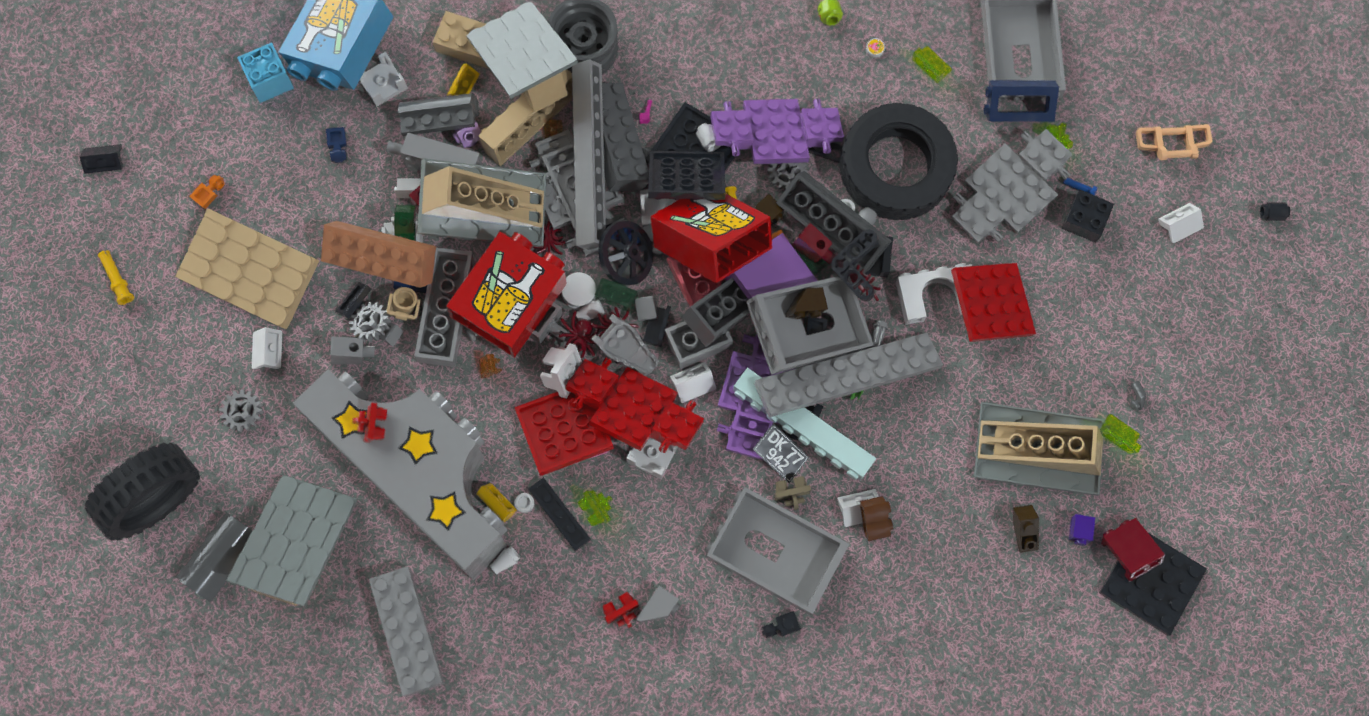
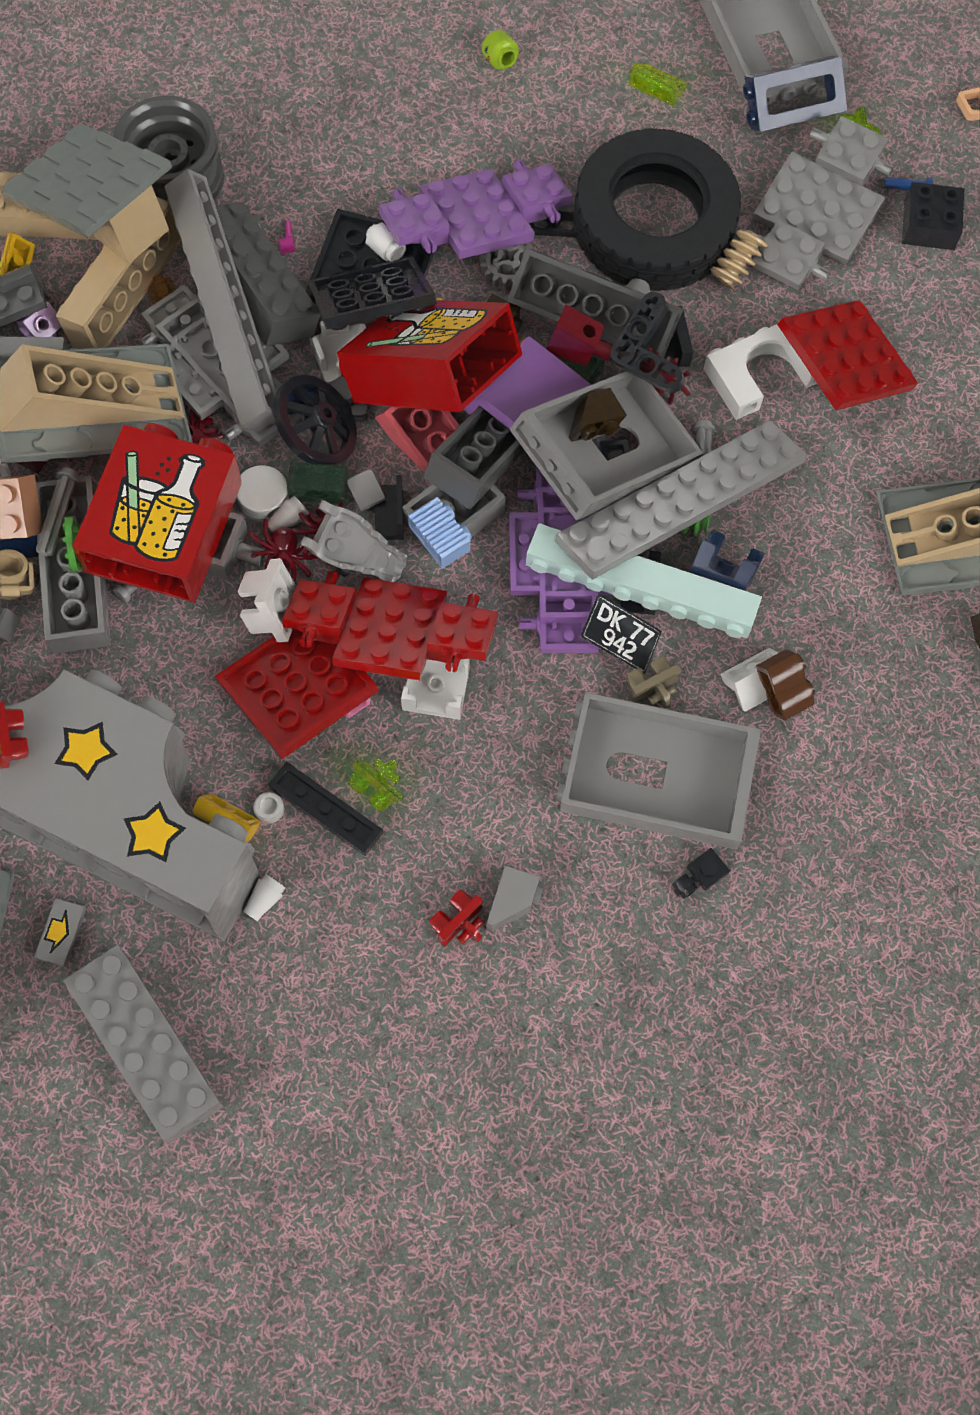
camera: 15 degrees left, 5 degrees down
(375, 546) = (60, 933): none -> light grey tile
(444, 272) = (57, 510): none -> light grey axle
(449, 292) = (71, 523): none -> bright green wheel
(487, 366) = (159, 630): clear orange tile -> none
(682, 355) = (440, 532): none -> light blue brick
(693, 382) = (466, 574): white panel -> none
(859, 430) = (715, 568): none -> dark blue panel
(875, 48) = (575, 81): tile -> none
(942, 213) = (738, 258): none -> tan piece

